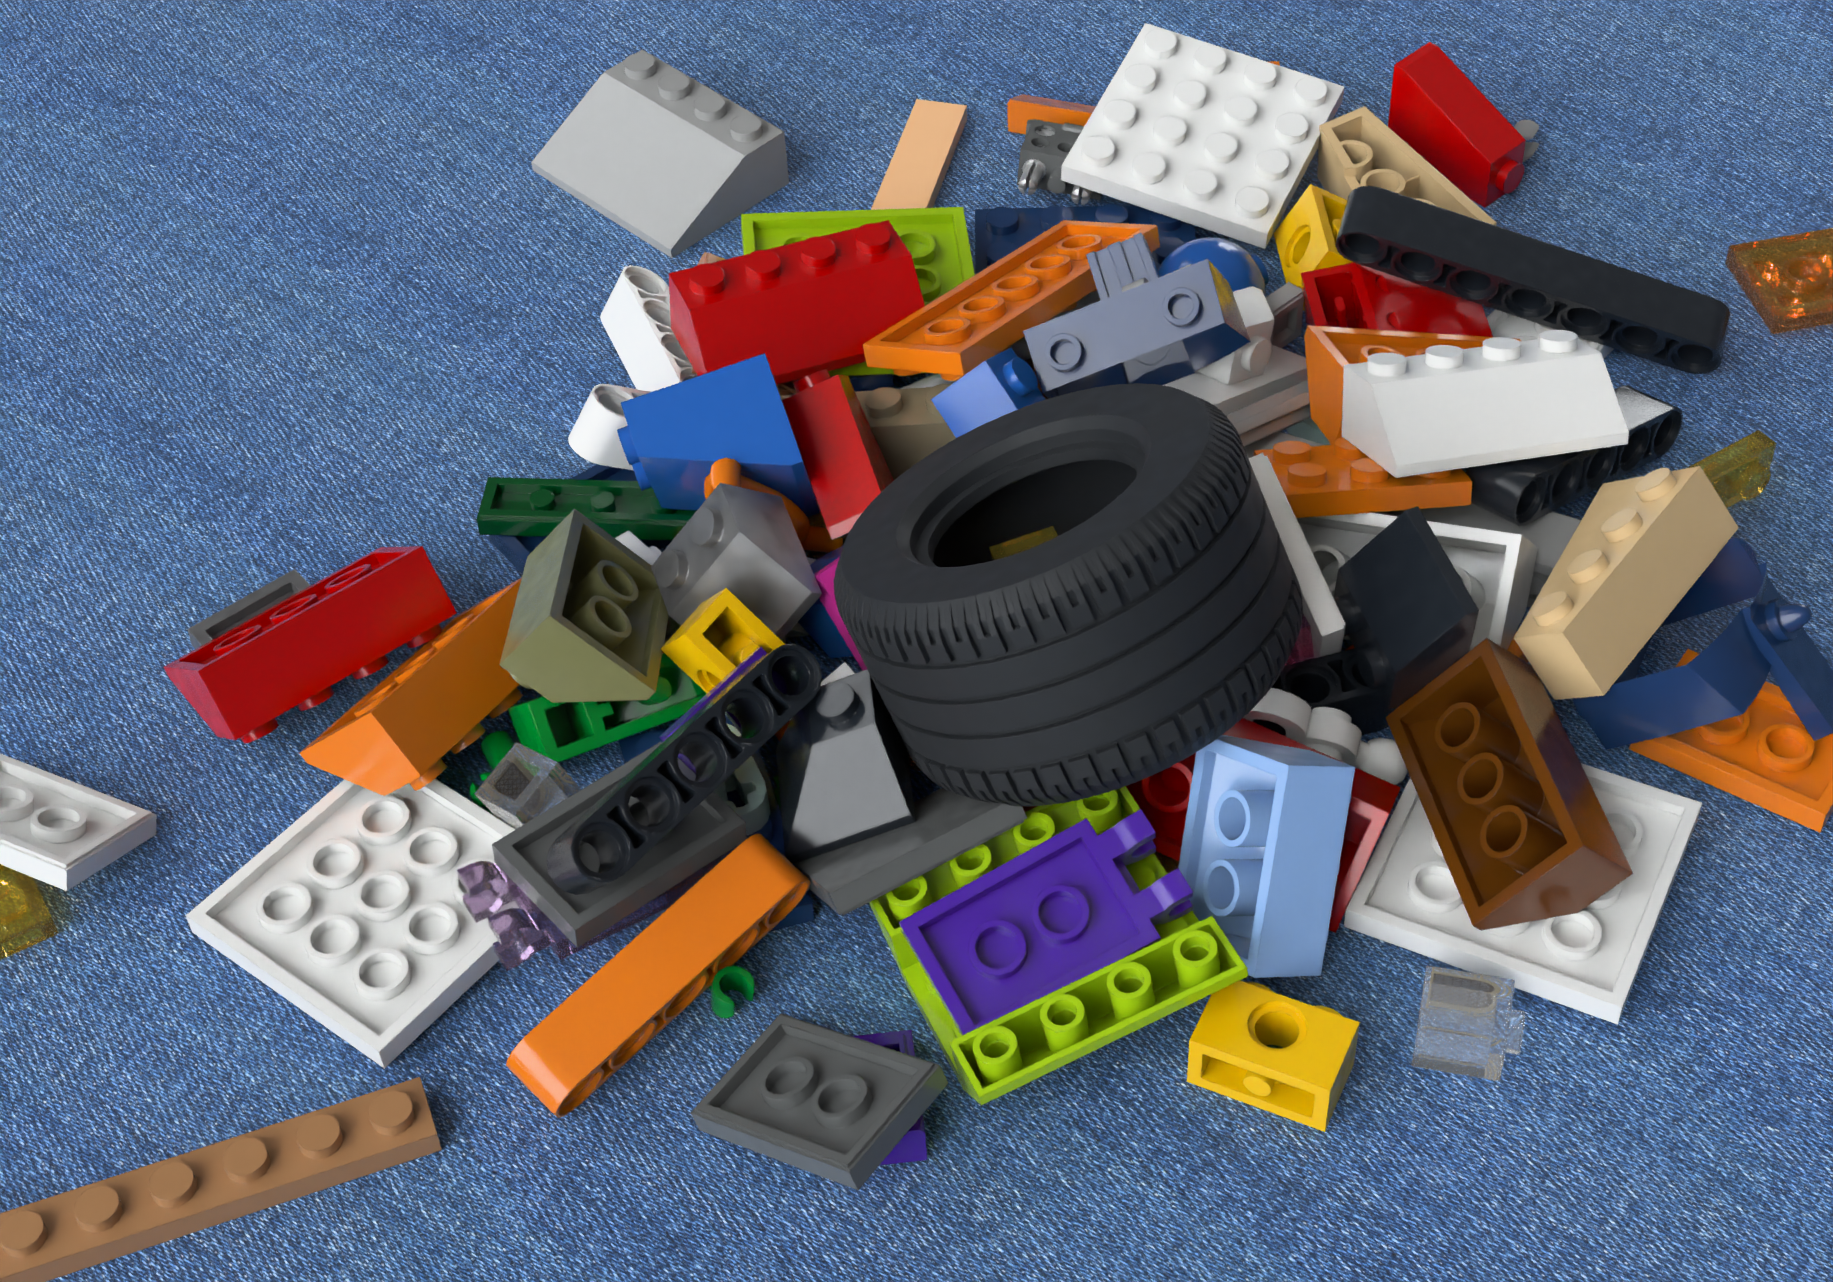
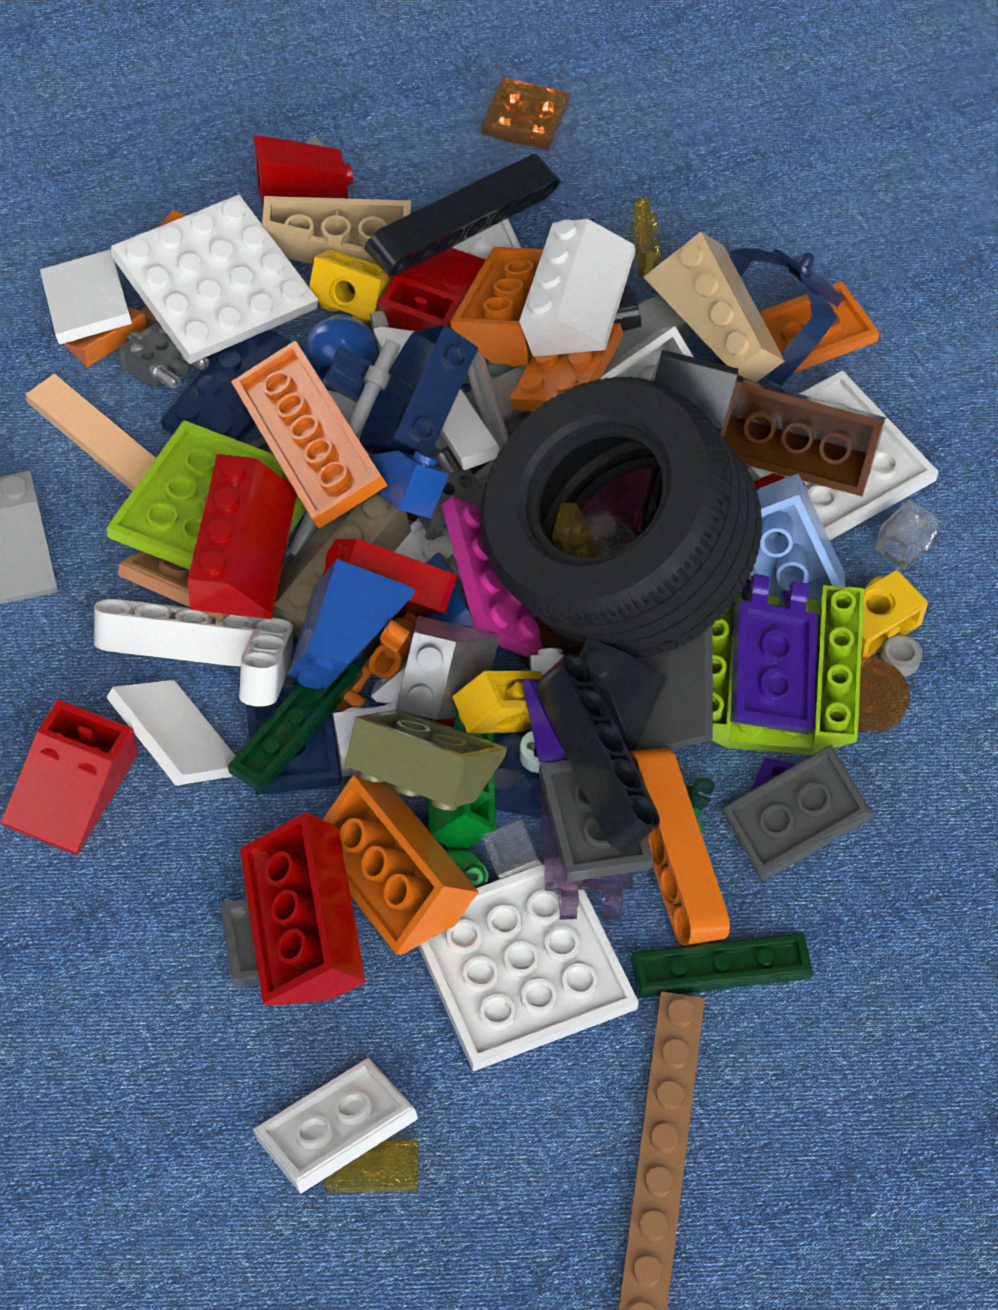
camera: 65 degrees left, 10 degrees up
(400, 369) = (69, 776): none -> slope
(511, 413) = (173, 731): none -> white tile
(517, 1141) = (721, 965): none -> dark green tile
(789, 962) = (700, 785): none -> clear green hand
(1071, 72) = (85, 297): none -> white tile
(1123, 1112) = (882, 696): none -> clear orange tile
(1234, 1124) = (902, 653): none -> light grey tile

